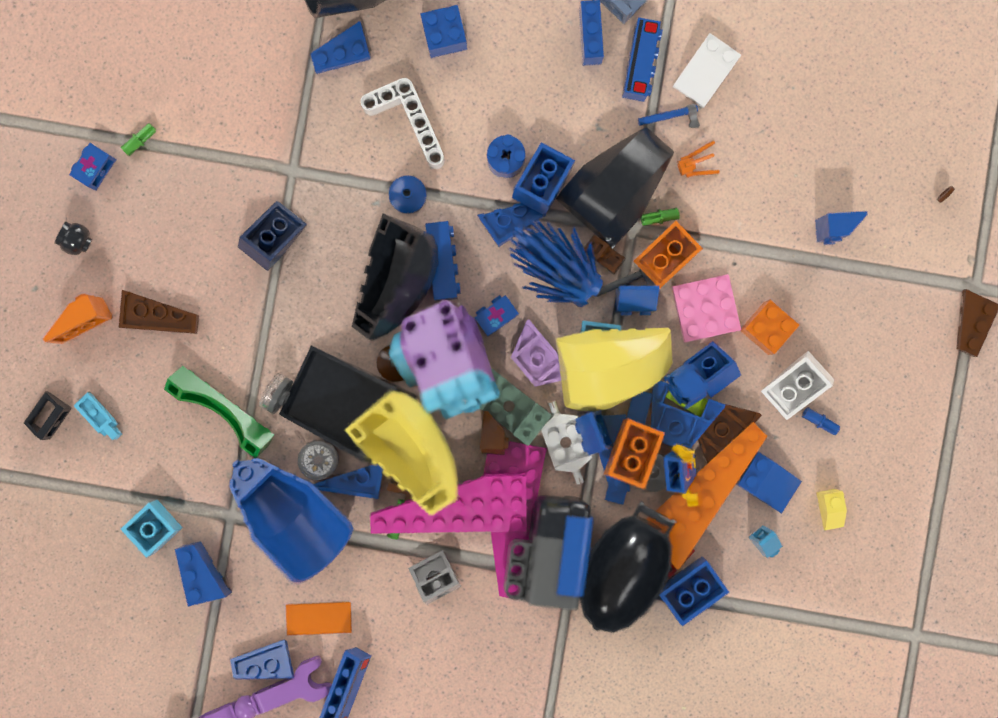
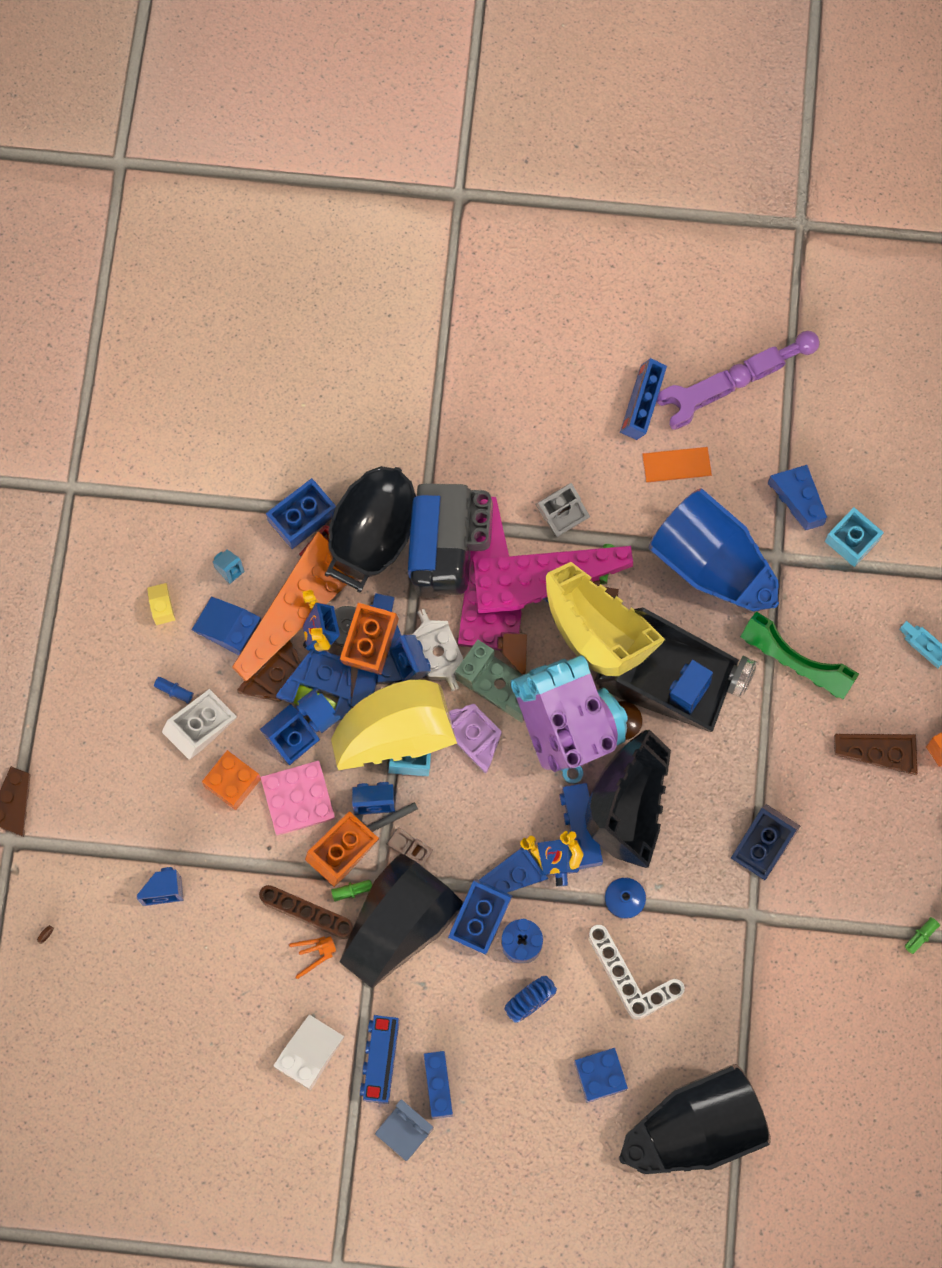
camera: 175 degrees right, 15 degrees down
(264, 663) = (726, 418): wing -> none
(318, 460) = (693, 614): clear piece -> none
(325, 385) = (691, 687): none -> blue brick
(343, 50) = (709, 1050): blue wing -> none
(360, 482) = (654, 595): blue wing -> none
(467, 231) = (557, 856): none -> torso
(496, 315) = (520, 773): blue brick -> none
(502, 100) = (530, 999): none -> blue gear
(557, 264) = (441, 812): blue plant -> none
(690, 110) = (324, 1009): blue piece -> none
(712, 198) = (299, 904): none -> reddish brown beam

